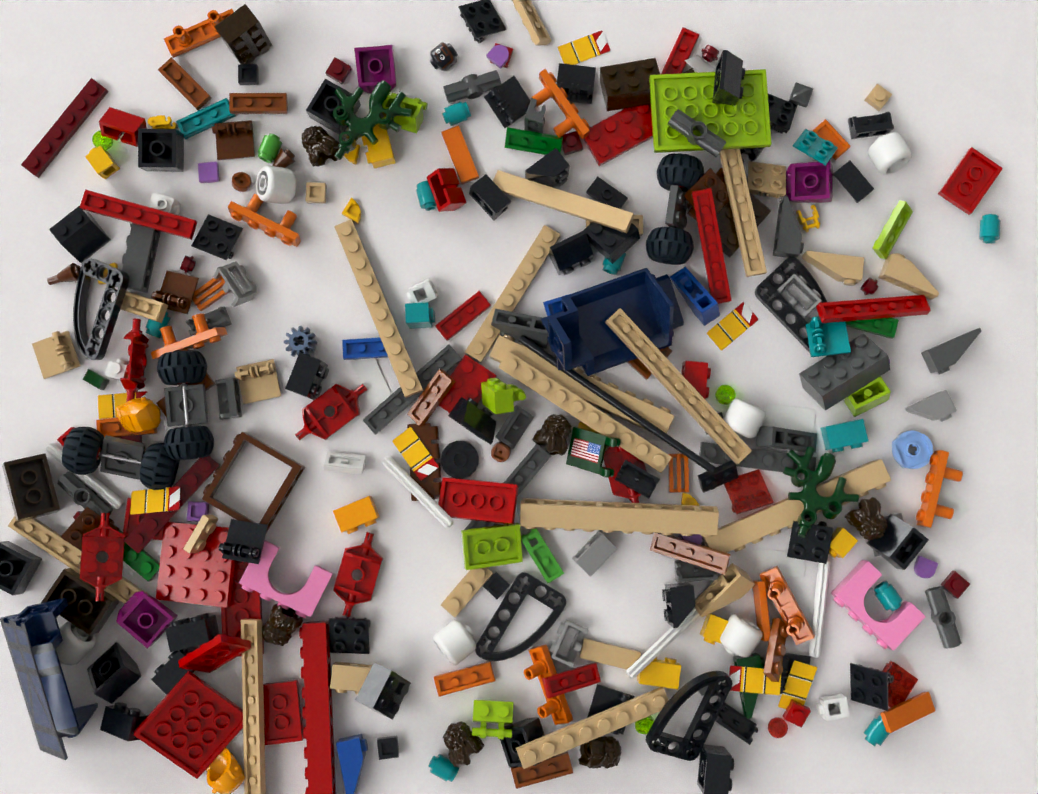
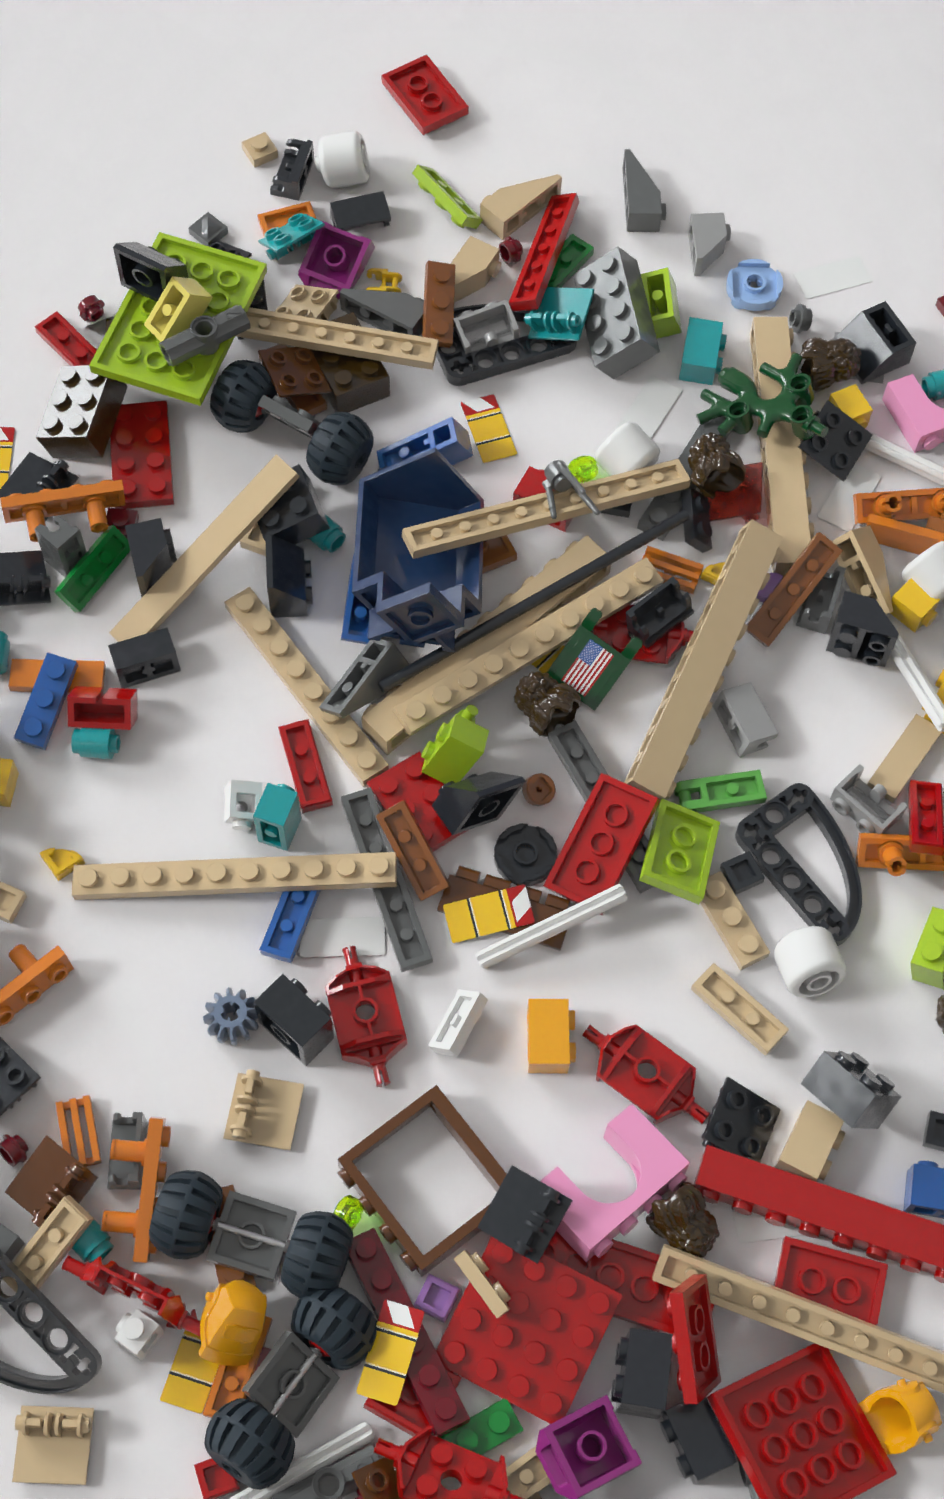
camera: 70 degrees left, 20 degrees down
(95, 379) = (130, 1390): dark green piece -> none
(220, 448) = (349, 1210): none -> clear neon green tile
(228, 398) = (269, 1170): dark grey hinge -> none
(237, 282) = (83, 1072): light grey window -> none
(414, 612) = (739, 1009): none -> tan plate
(440, 156) = (46, 701): none -> blue plate
(464, 678) = (870, 977): orange tile -> none
(514, 427) = (506, 754): dark grey hinge -> none
(606, 193) = (210, 508): black plate -> none
(698, 387) = (561, 479): none -> dark grey plant
(709, 108) = (177, 307): none -> light yellow slope
(711, 245) = (361, 393): red plate -> none
(755, 474) = (715, 465): none -> dark brown hair
(785, 439) = (677, 420): dark grey slope -> none
(801, 260) = (439, 302): none -> dark orange plate
(898, 488) = (800, 318): none -> dark grey plate
(924, 567) = (921, 330): medium lavender tile -> none
(934, 481) = (827, 287): orange plate -> none
(989, 228) = (498, 96): teal brick -> none

